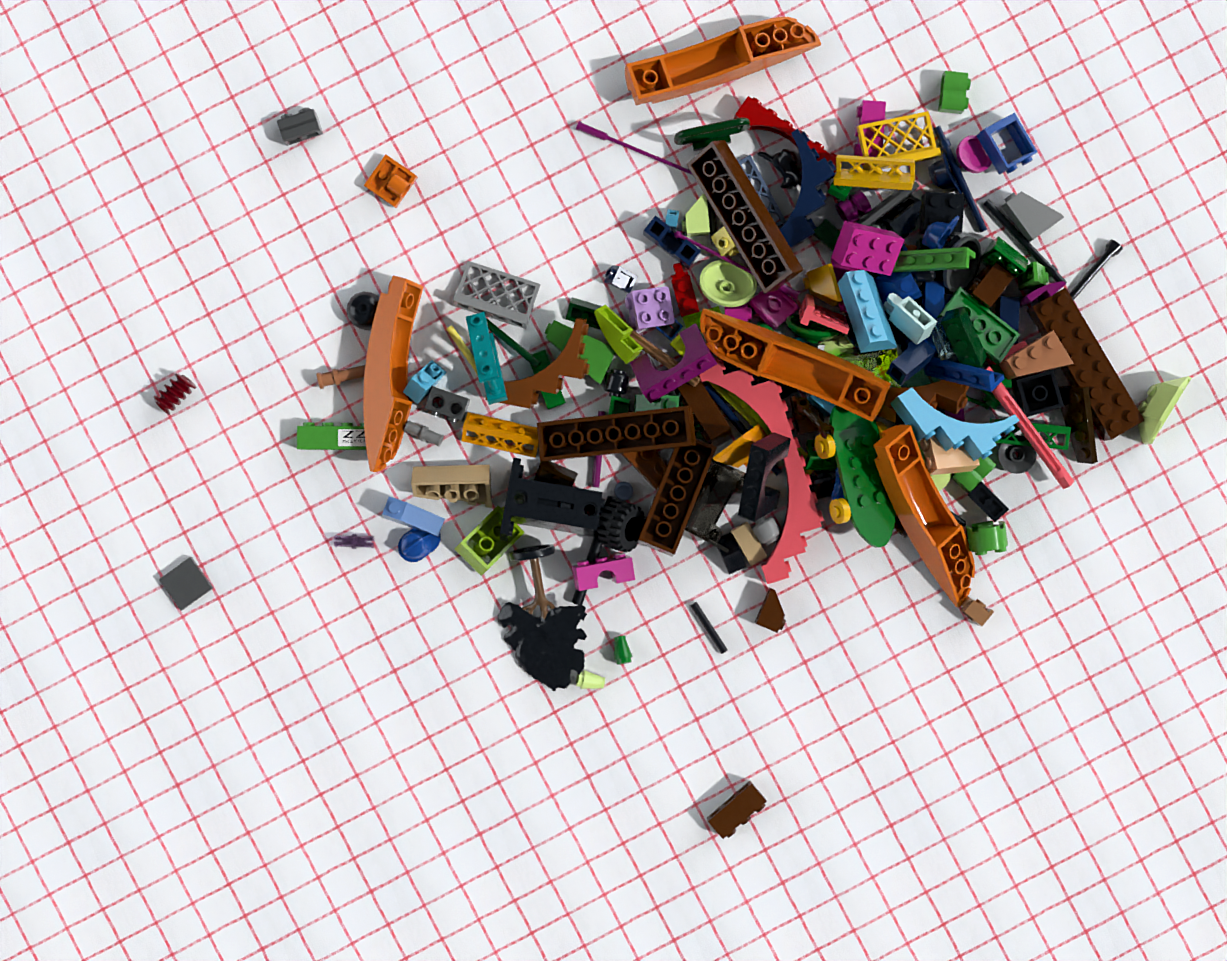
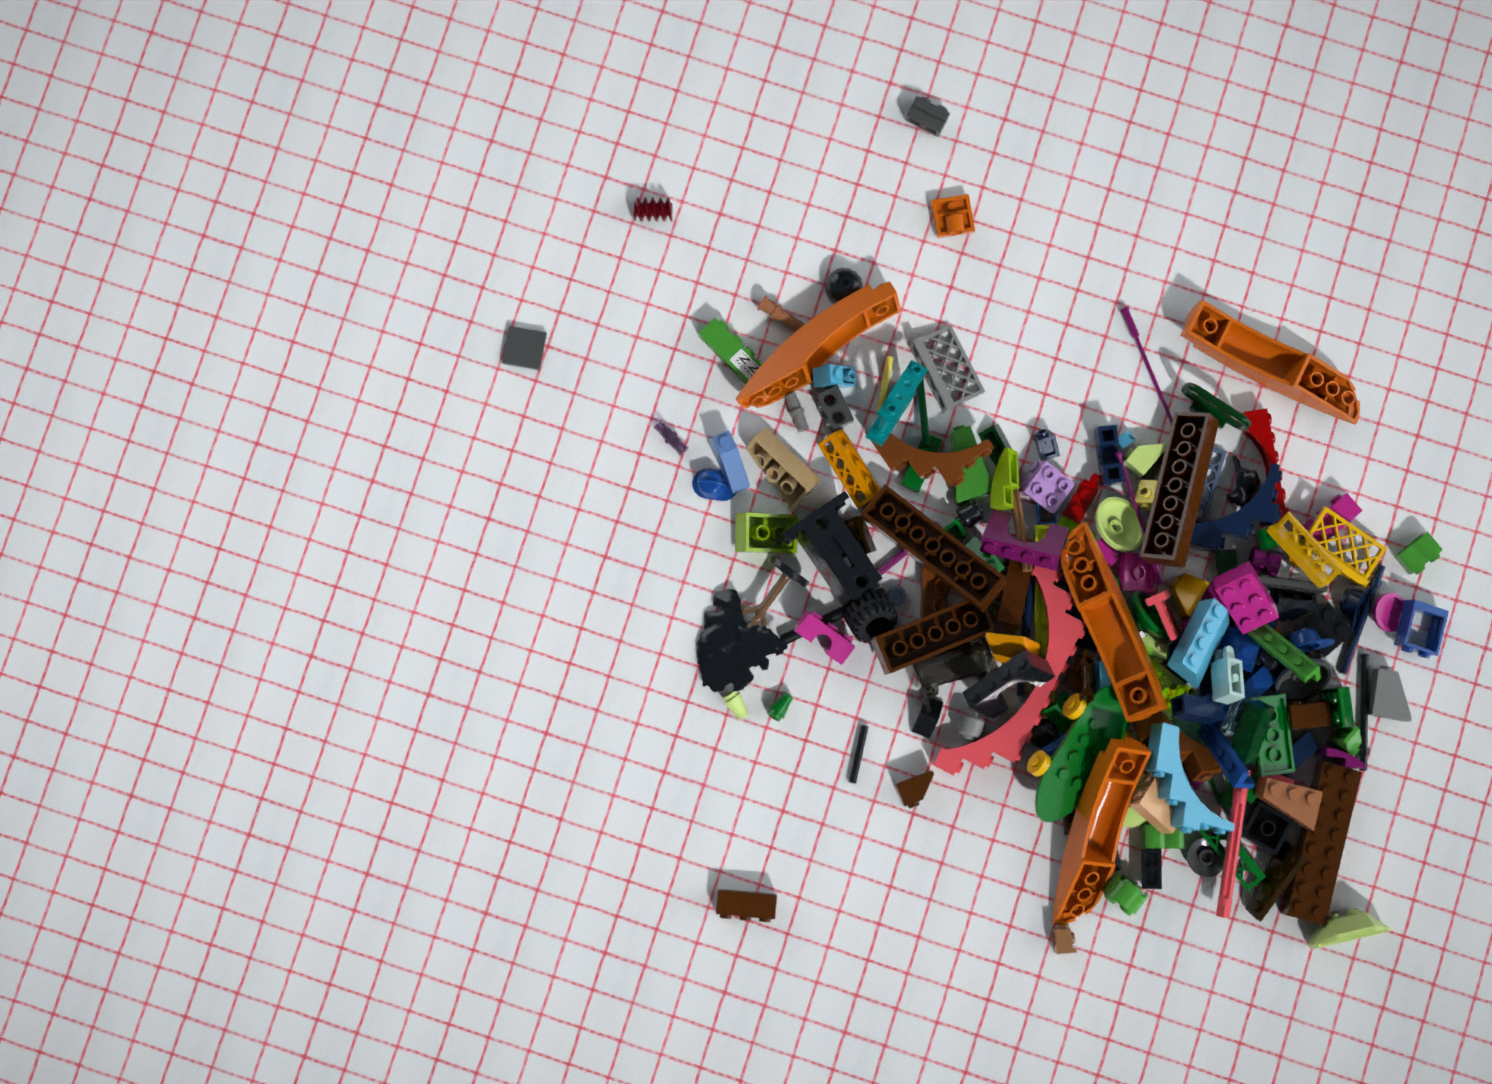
camera: 45 degrees right, 5 degrees down
(748, 543) = (948, 723): tan slope -> none
(1112, 248) = (1425, 781): black piece -> none

